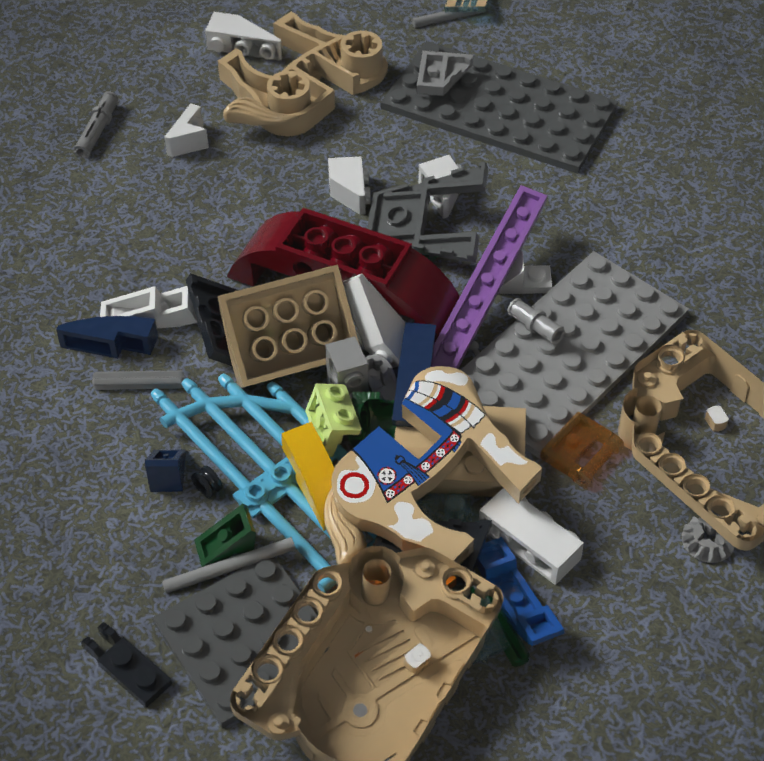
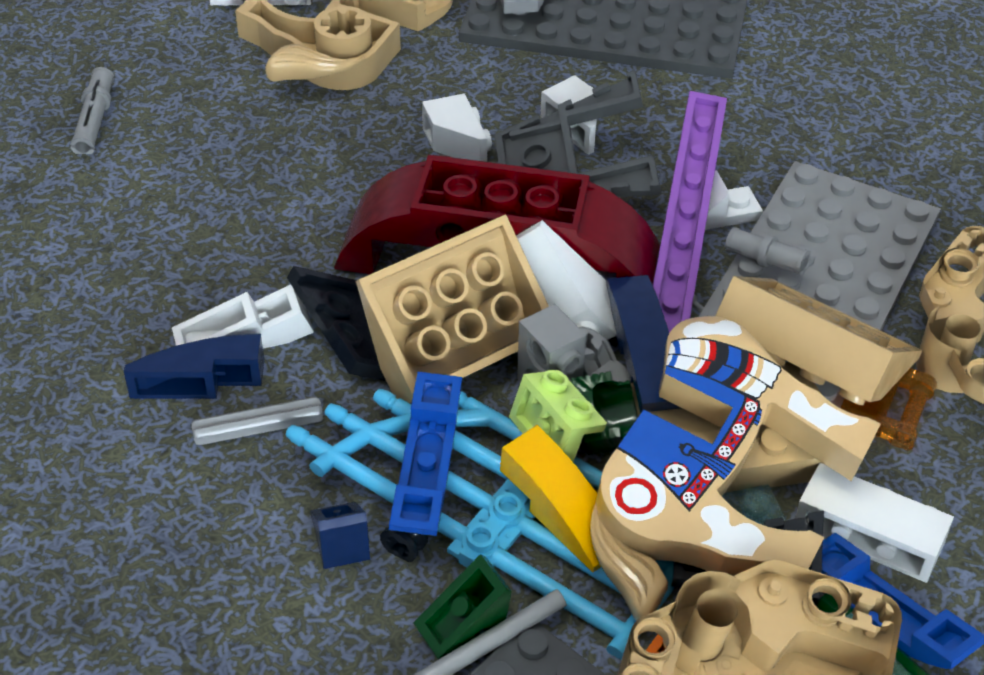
camera: 15 degrees left, 5 degrees down
(187, 133) = (222, 103): white slope -> none
(236, 429) = (427, 454): none -> blue slope
(538, 393) = (818, 338): none -> tan slope

